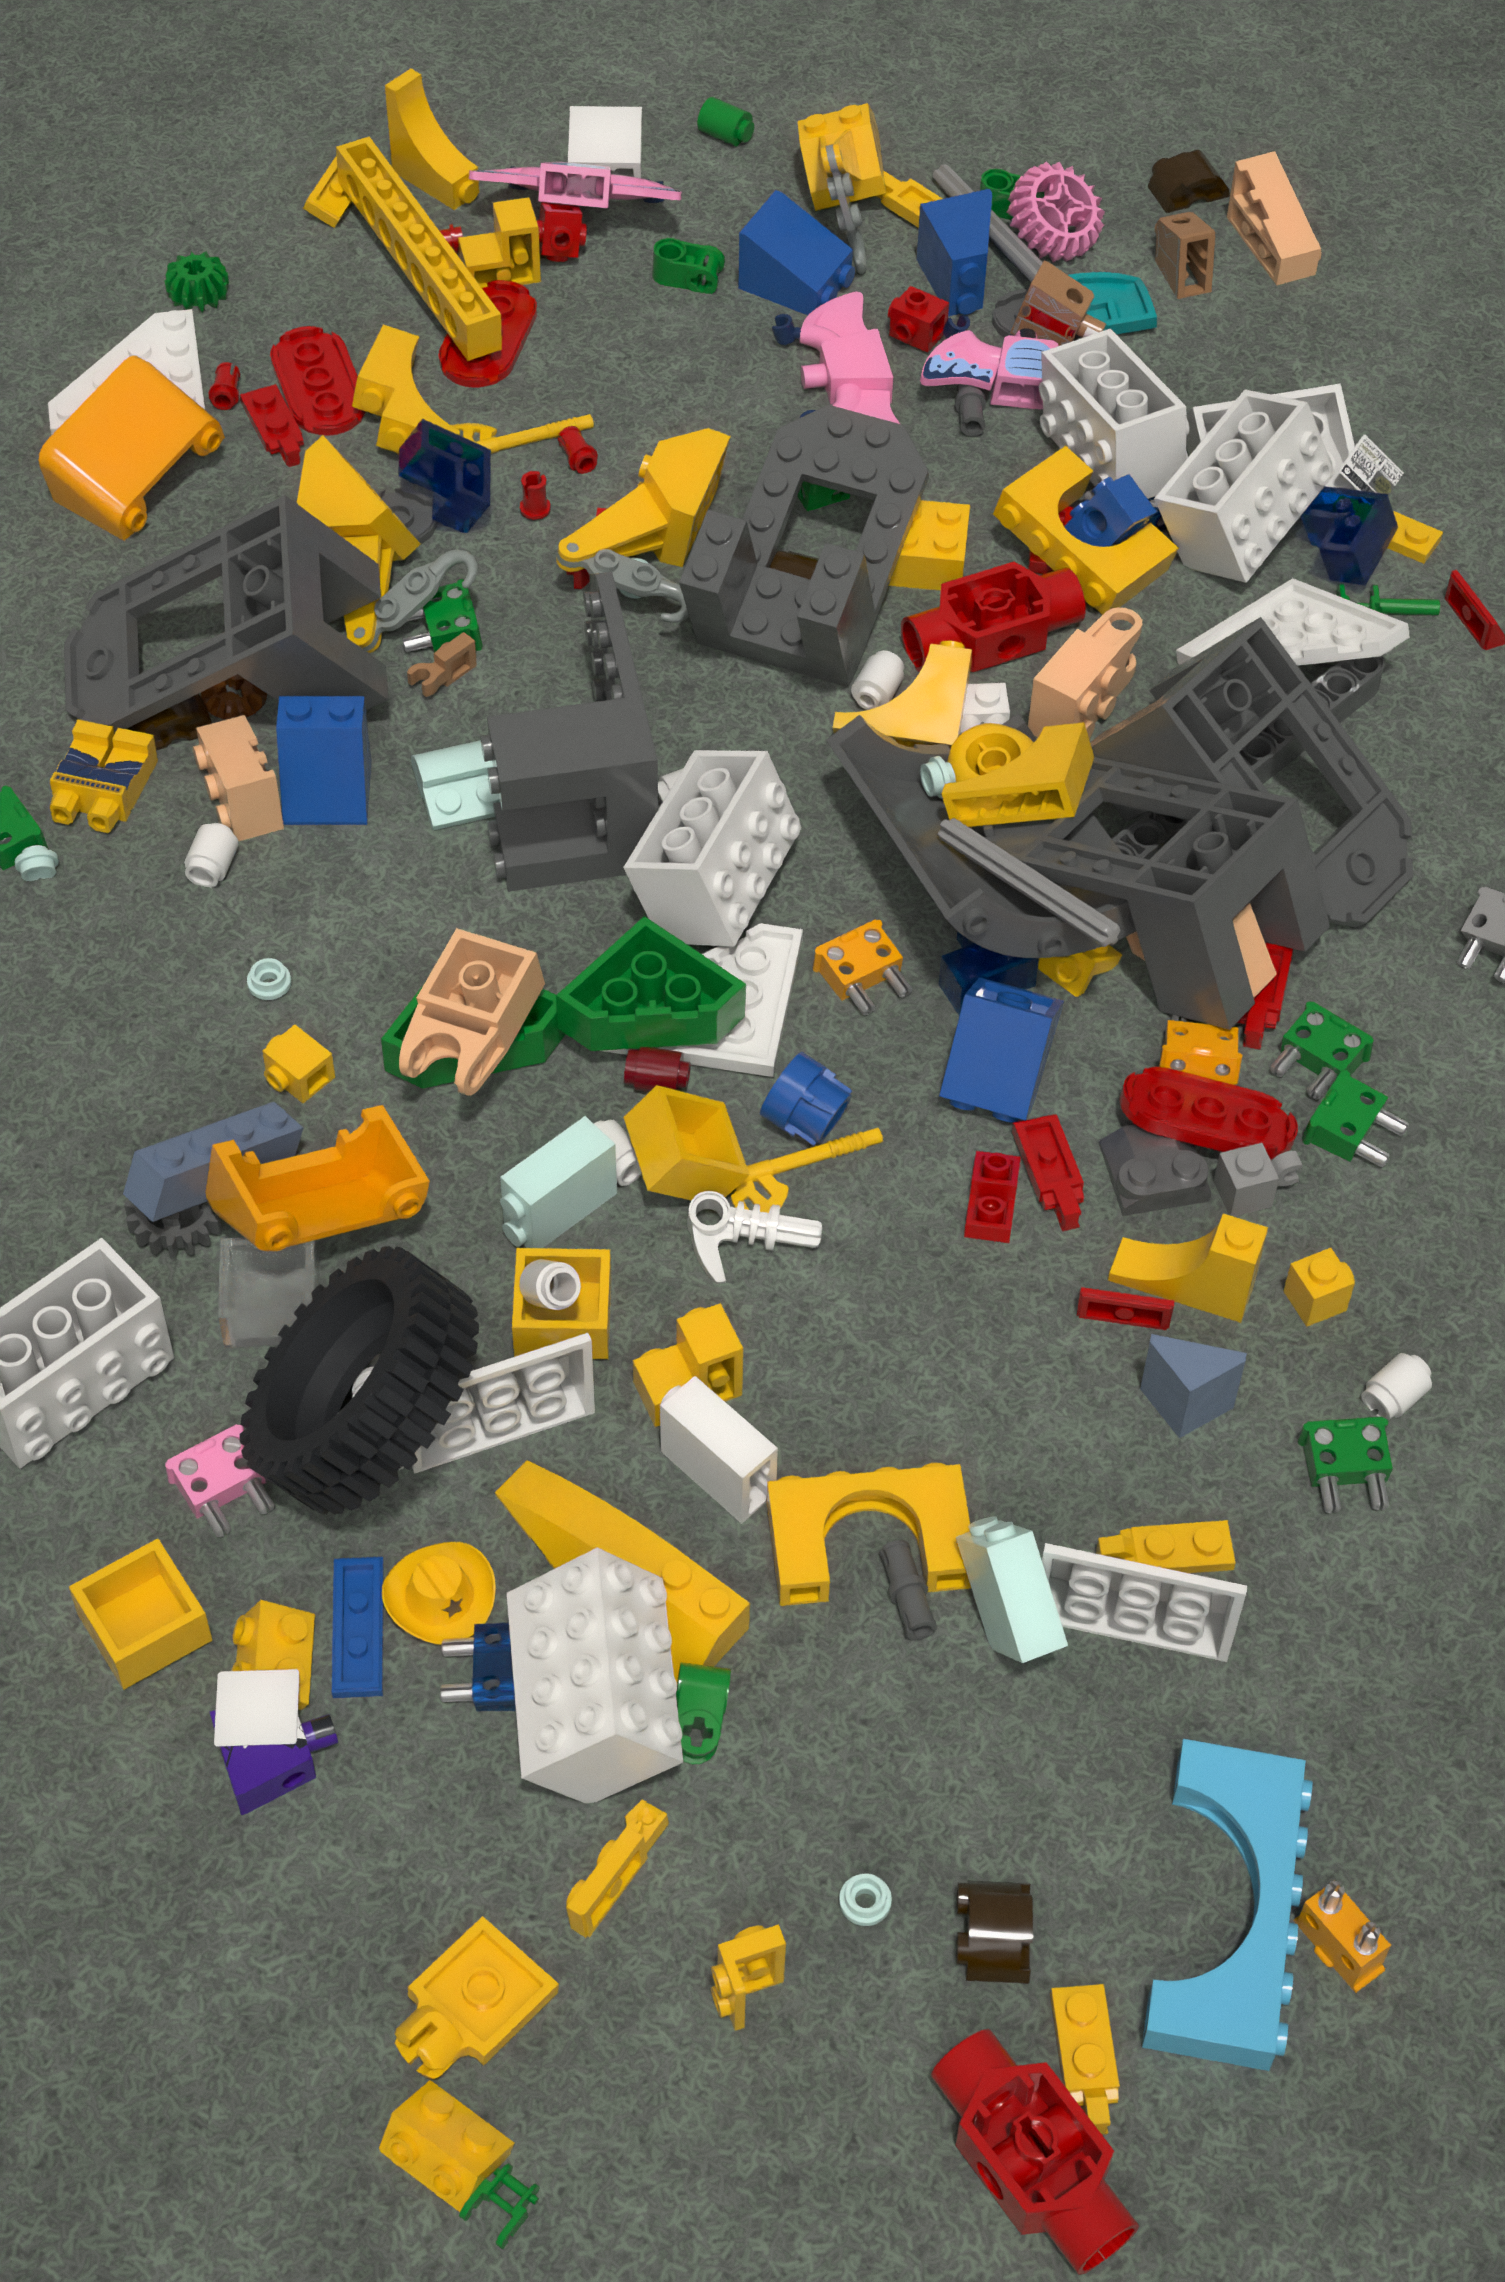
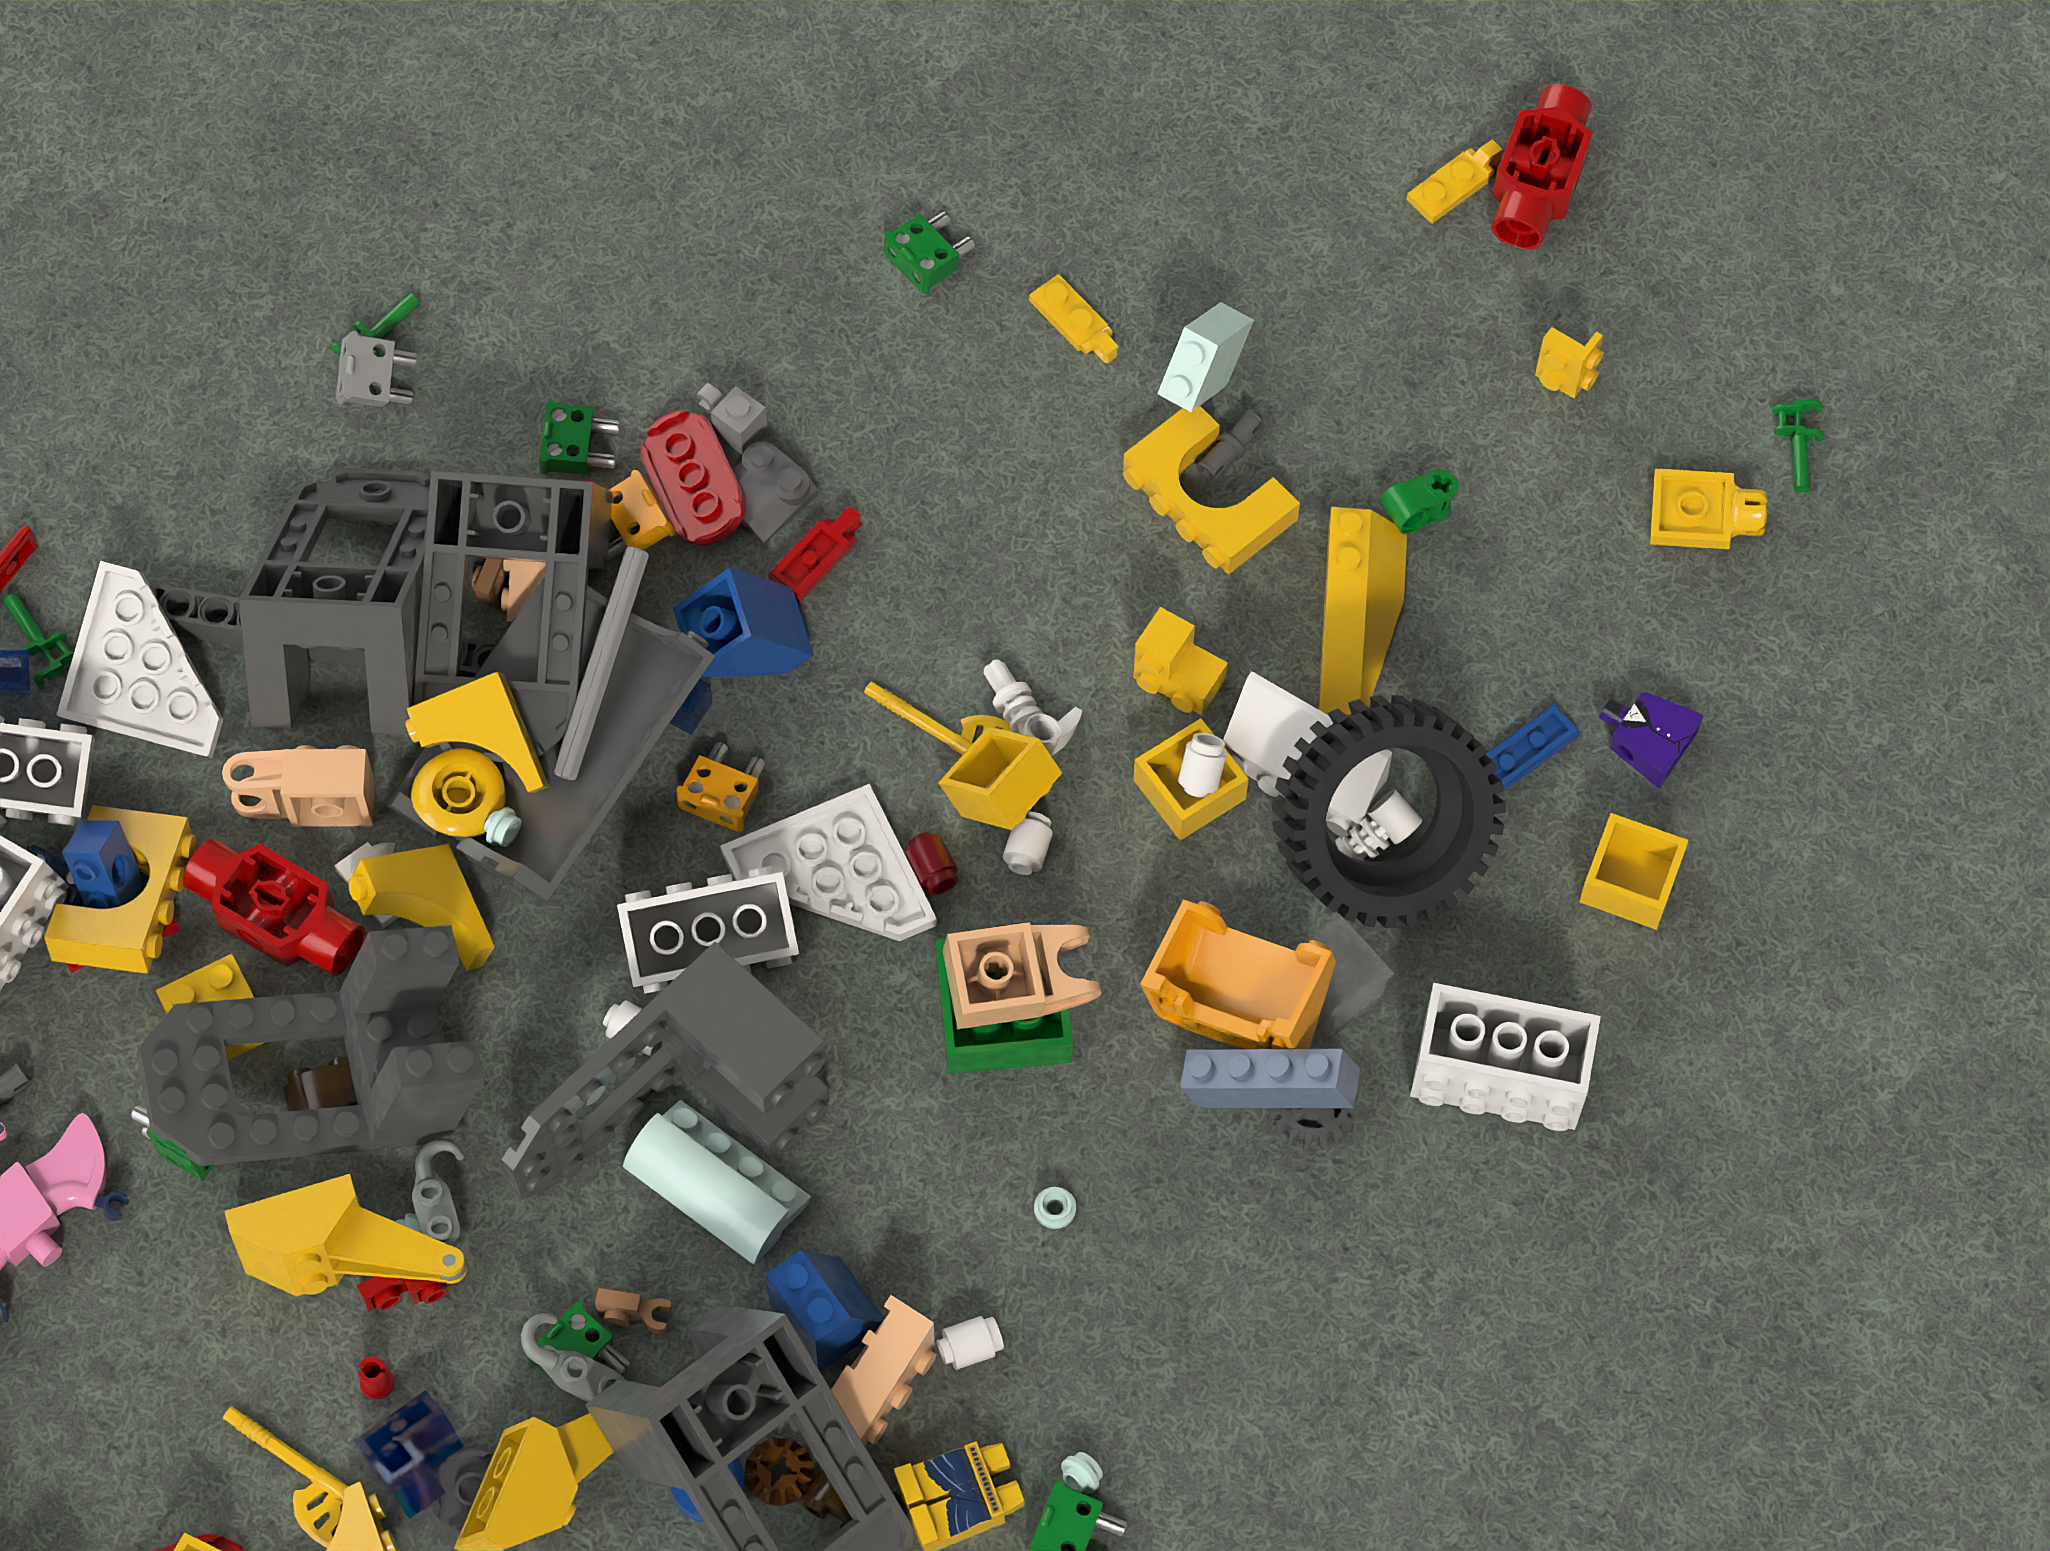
camera: 125 degrees left, 10 degrees up
(217, 1471) = (1491, 915): bright pink piece -> none
(256, 1707) = (1639, 746): white sticker -> none
(276, 1639) = (1589, 783): yellow bracket -> none
(297, 1064) = (1122, 1118): yellow brick -> none
(440, 1591) = (1470, 707): yellow hat -> none
(443, 2144) = (1793, 468): yellow bracket -> none
(492, 1668) = (1480, 639): clear blue piece -> none
(558, 1185) = (1100, 841): light aqua brick -> none
(580, 454) = (280, 1392): red pin -> none
(593, 1677) = (1462, 551): white brick -> none
(615, 1868) = (1556, 486): yellow hinge -> none
(650, 994) = (885, 884): green brick -> none
(717, 1448) = (1231, 599): white brick -> none
(806, 1100) = (888, 737): blue piece -> none
(869, 1885) = (1458, 337): light aqua plate -> none
(992, 1196) = (862, 584): red slope -> none
(997, 1931) = (1415, 266): dark brown cylinder -> none
(1125, 1308) = (900, 443): red slope -> none
(1143, 1602) = (1138, 289): white slope -> none
(1190, 1381) = (952, 351): sand blue slope -> none
(1203, 1273) = (846, 404): yellow arch -> none
(1236, 2007) = (1360, 116): medium azure arch -> none
(1319, 1286) = (799, 329): yellow brick -> none
(1343, 1936) = (1276, 84): light orange piece -> none
(1347, 1118) = (627, 392): green piece -> none
(1397, 1386) = (843, 249): white brick -> none

